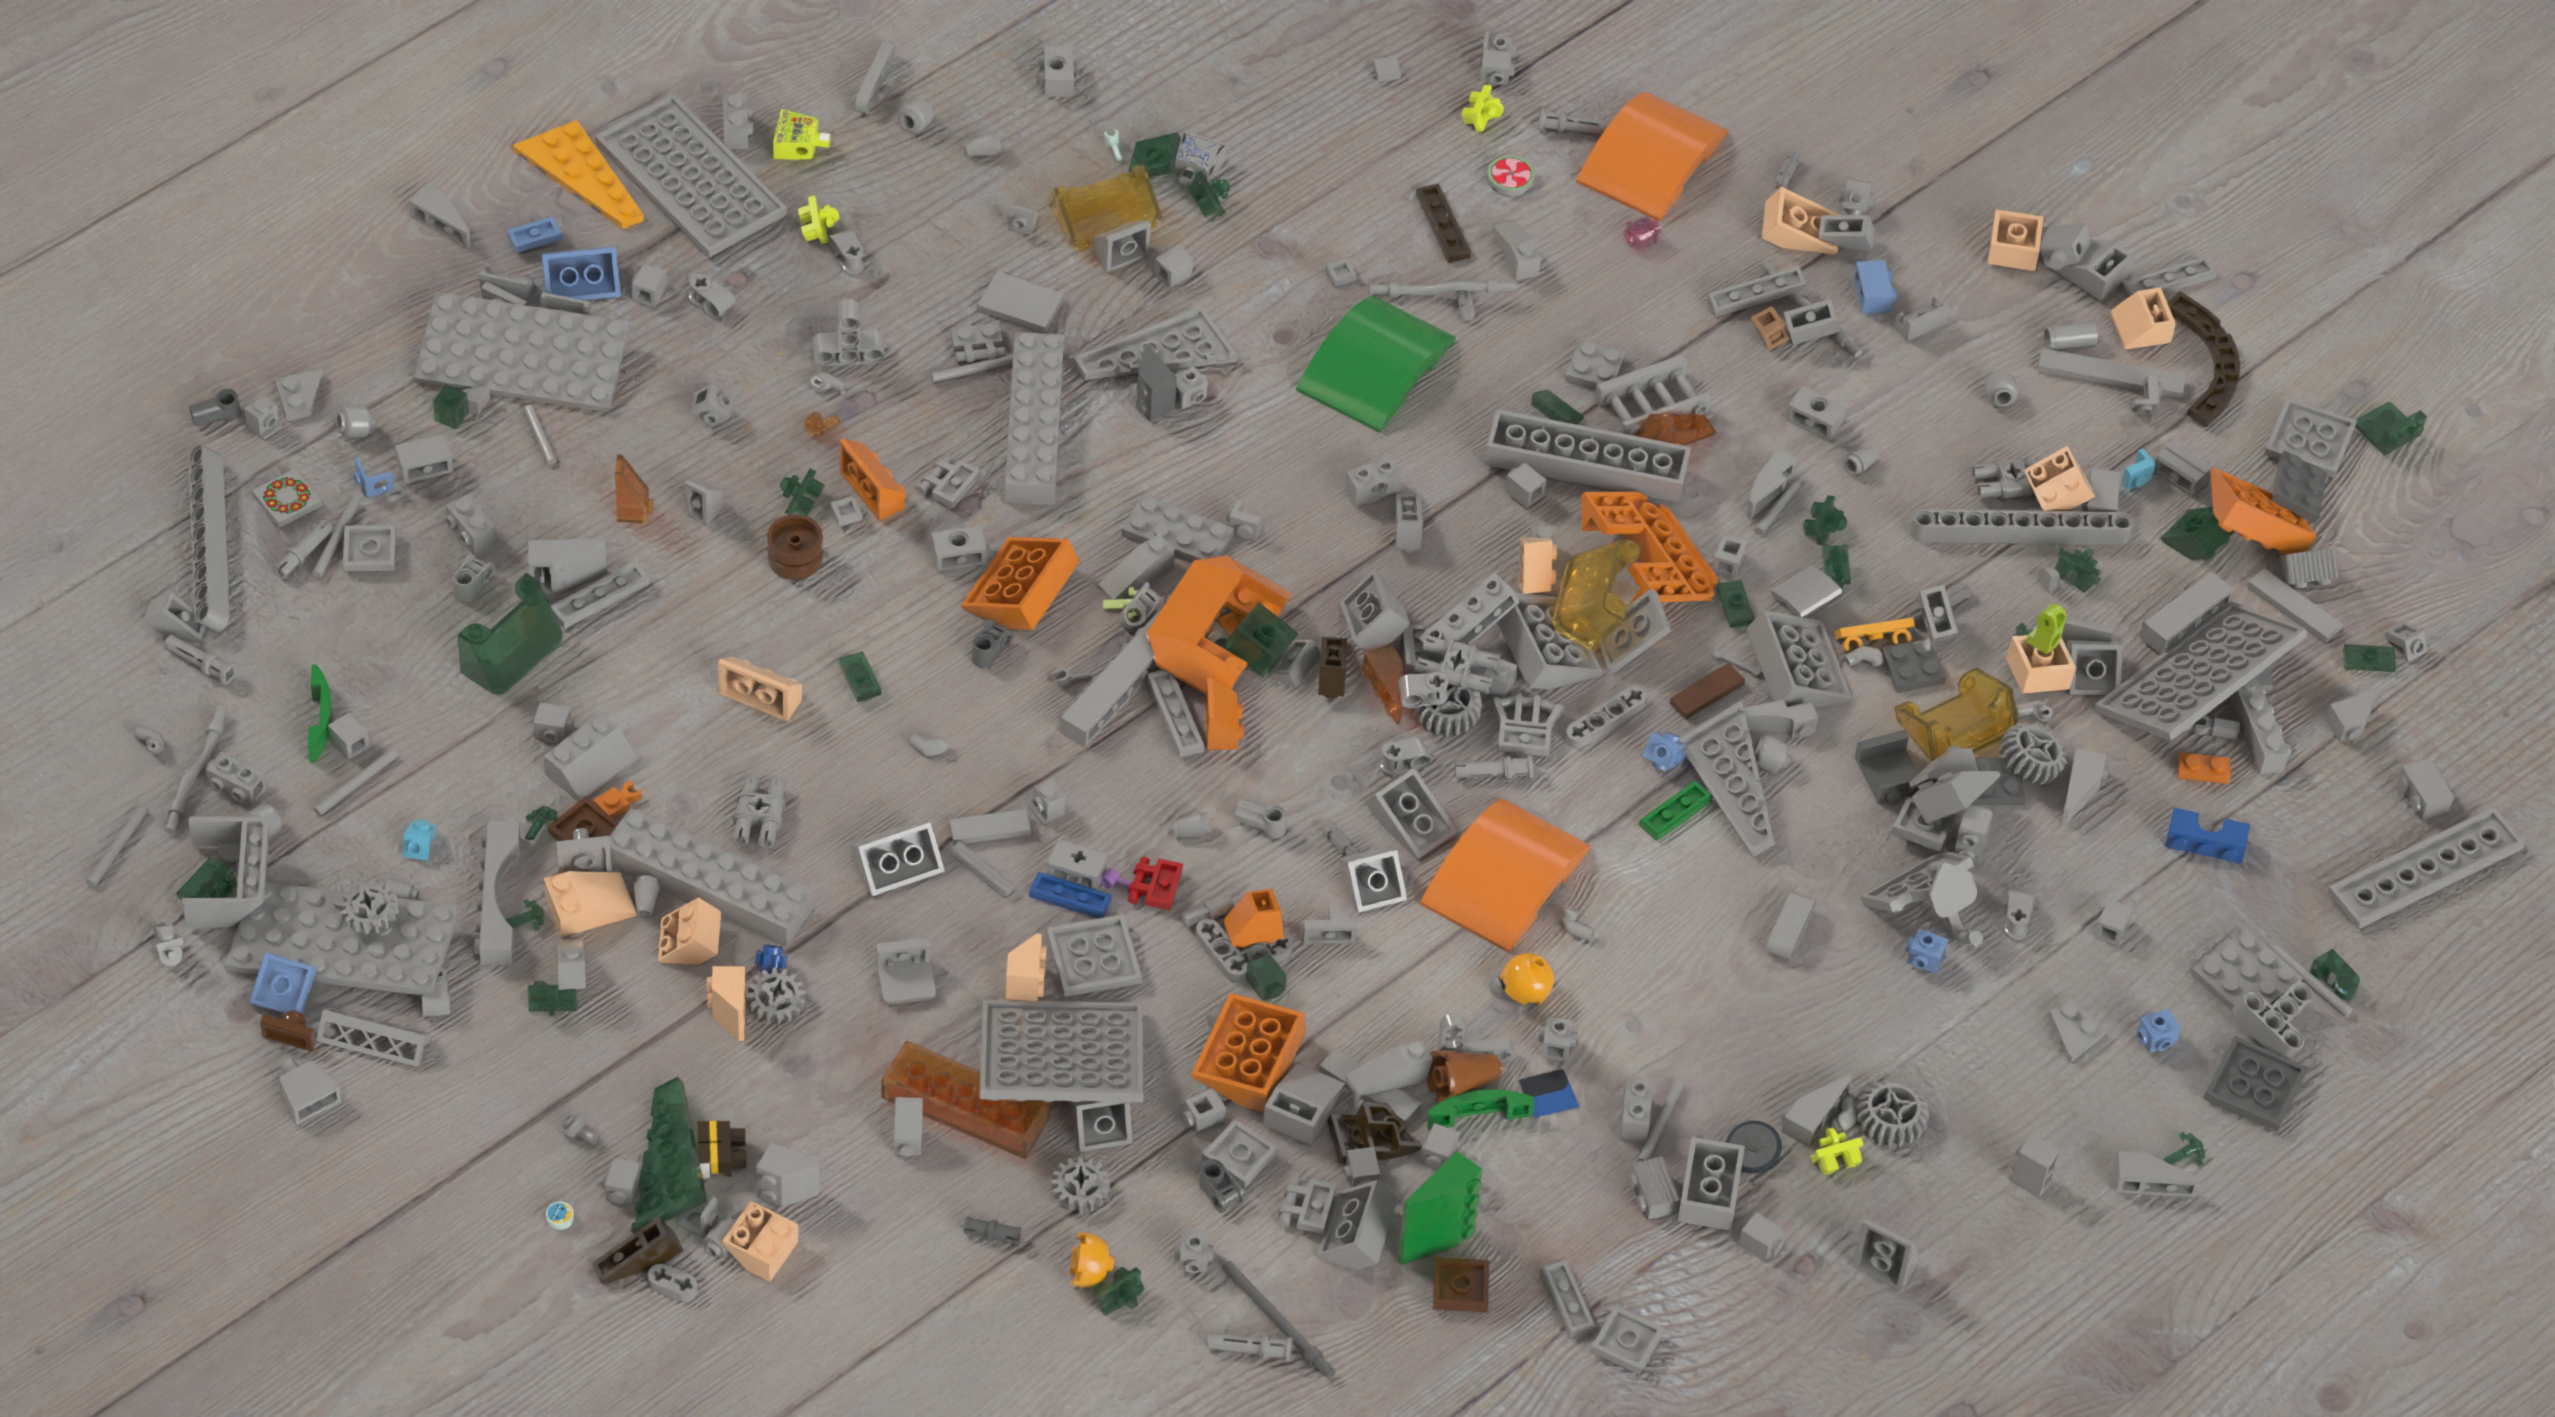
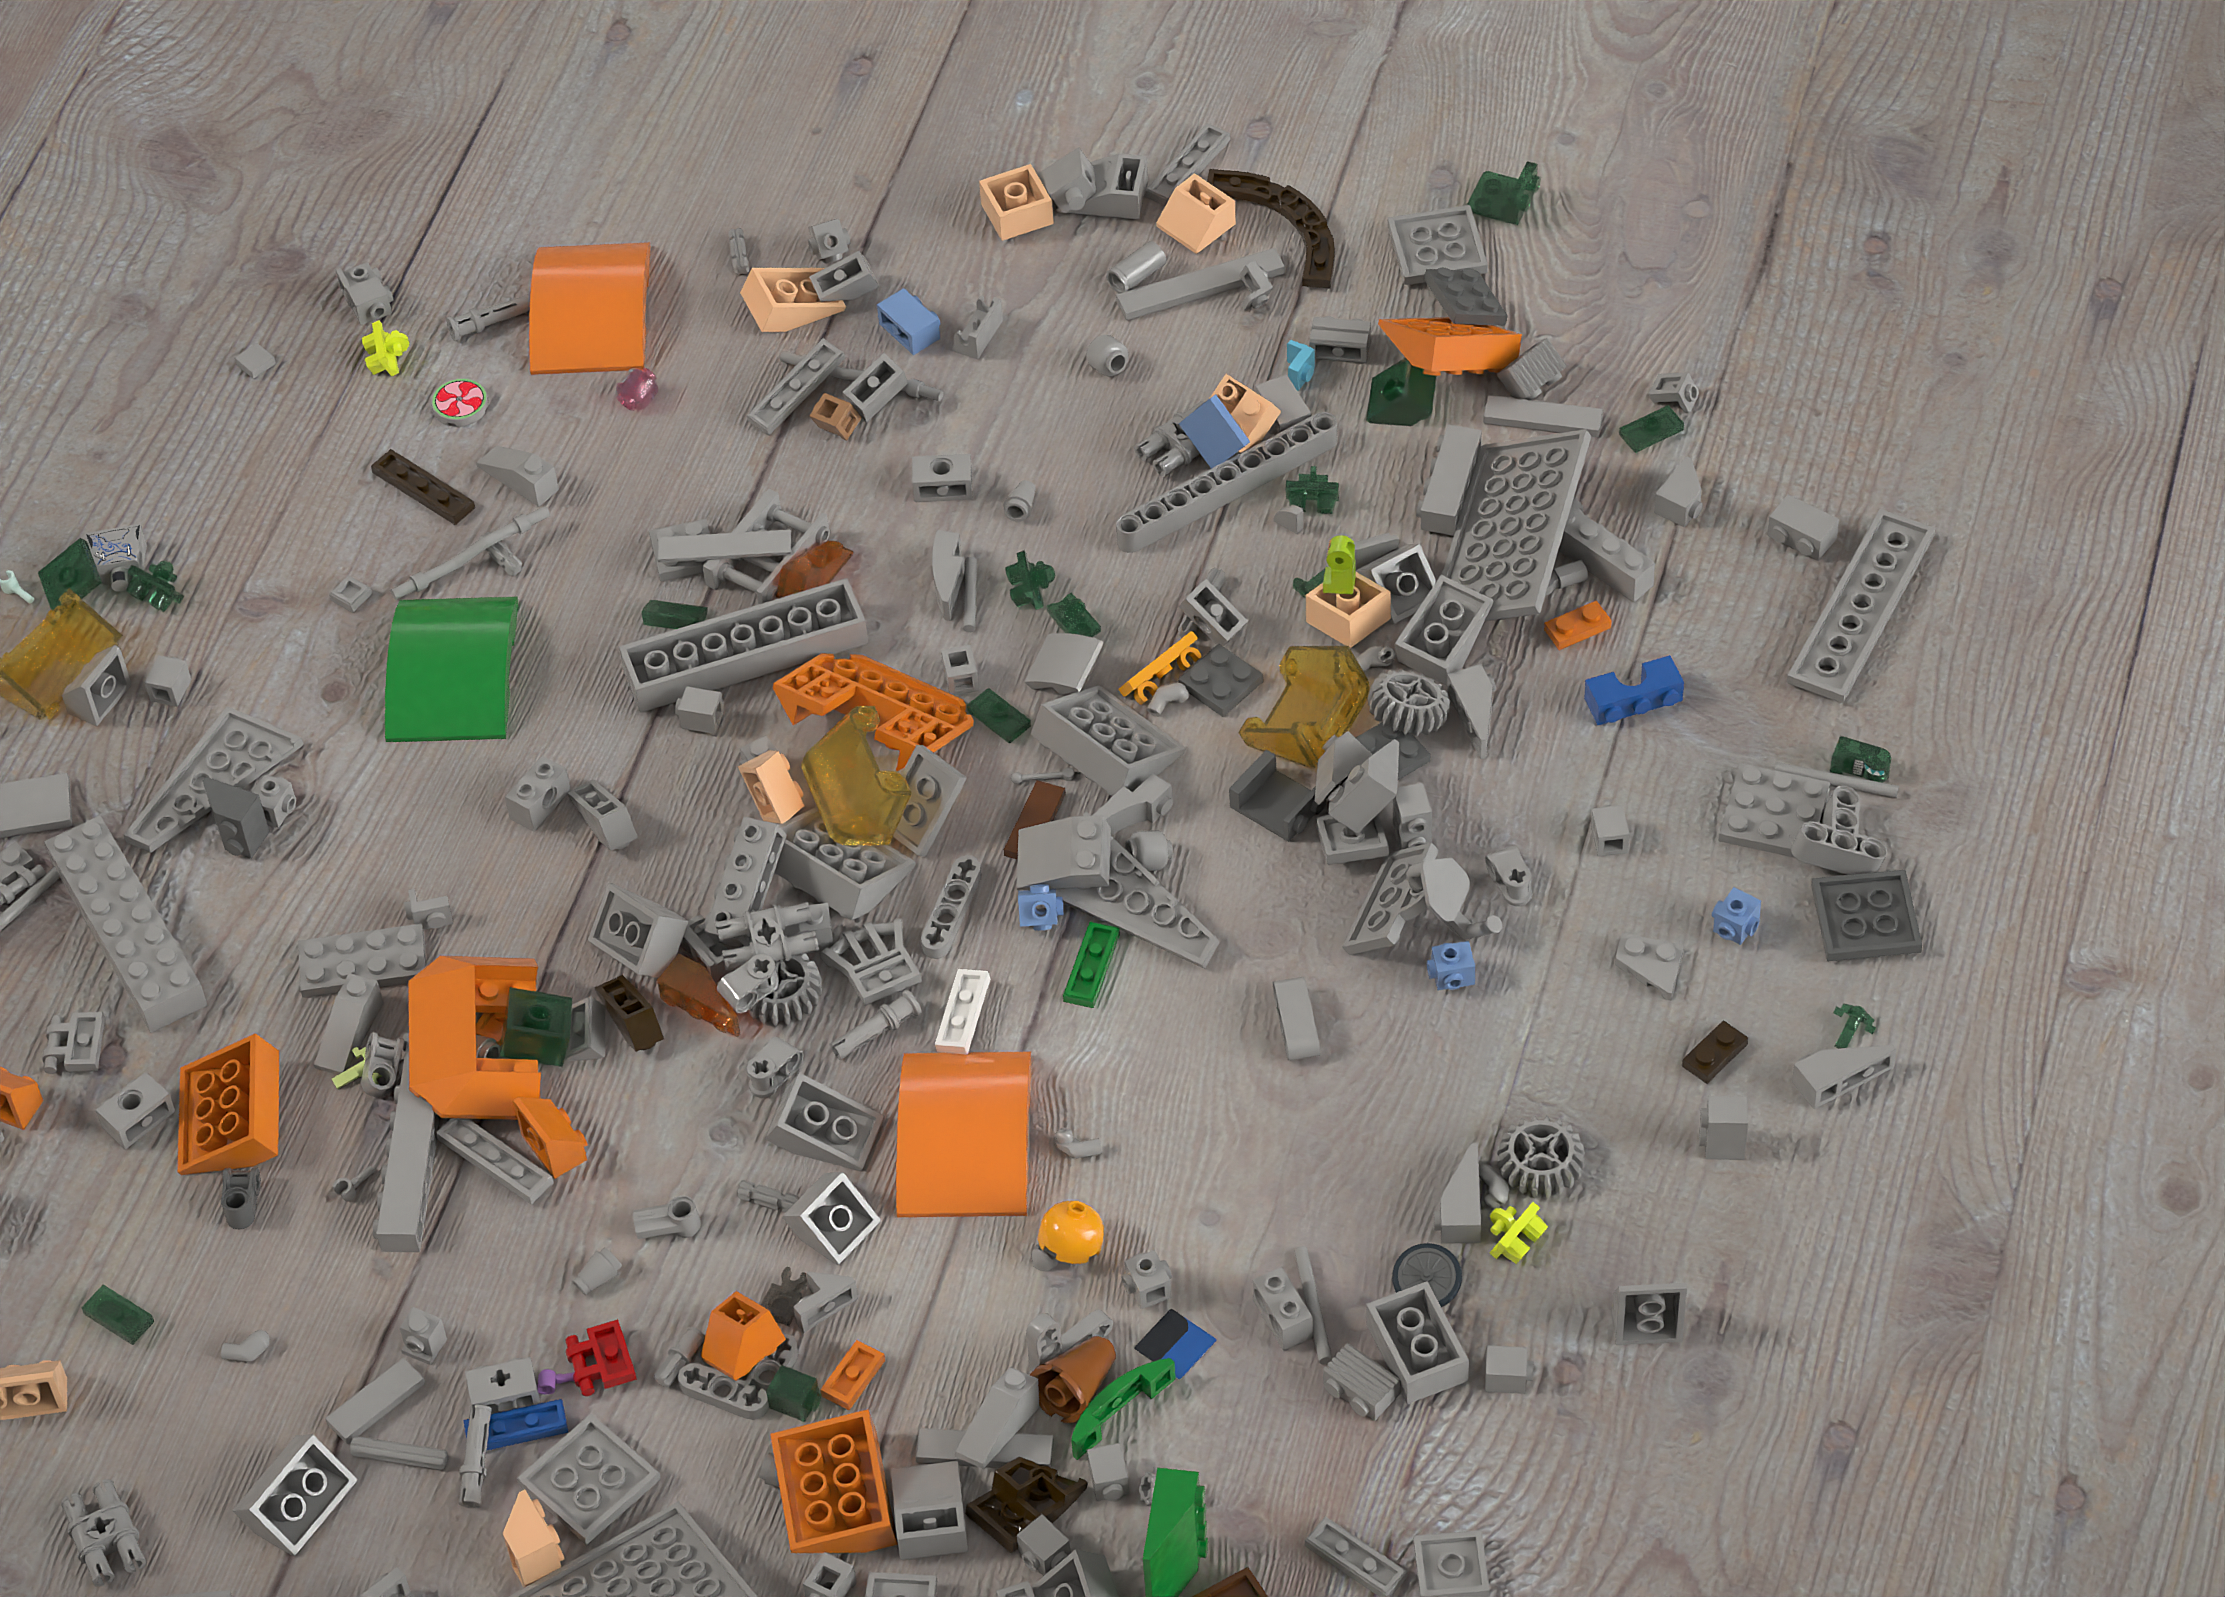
camera: 25 degrees left, 0 degrees up
(1022, 906) = (474, 1464): none -> light grey pin
(1300, 910) = (782, 1298): none -> clear smoke plate
(1315, 988) = (852, 1375): none -> orange plate
(1561, 791) = (962, 1011): none -> white plate
(1622, 378) = (724, 546): none -> light grey piece
(1707, 723) = (1065, 853): none -> light grey slope
(2031, 484) = (1214, 432): none -> medium blue tile
(2073, 1114) = (1715, 1052): none -> dark brown plate
(2096, 715) = (1443, 629): none -> light grey slope

